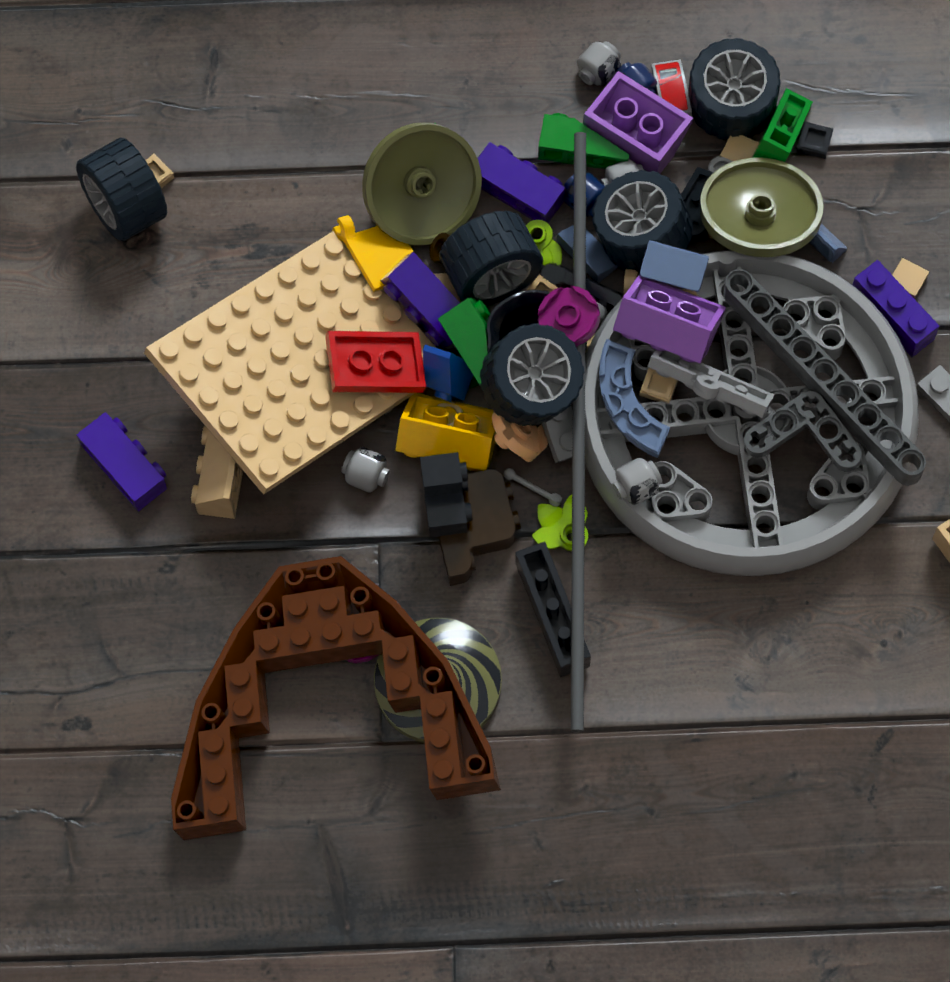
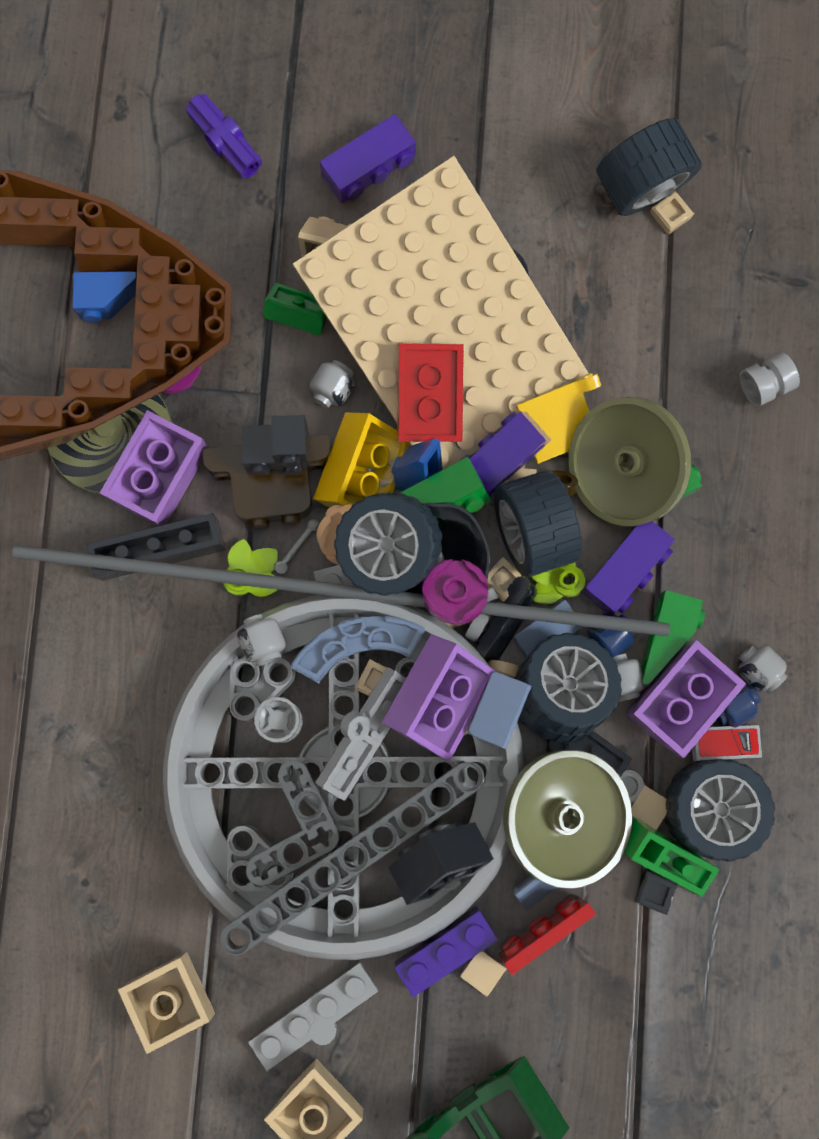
camera: 90 degrees right, 10 degrees up
(106, 607) = (223, 136): none -> dark purple piece
(286, 516) = (294, 309): none -> green slope
(293, 705) = (102, 293): none -> blue slope
(321, 73) = (775, 376): none -> light grey wheel
(476, 617) = (154, 469): none -> medium lavender slope
(710, 452) = (278, 720): none -> light grey wheel
(815, 298) = (439, 860): none -> black brick
(866, 222) = (545, 933): none -> red plate

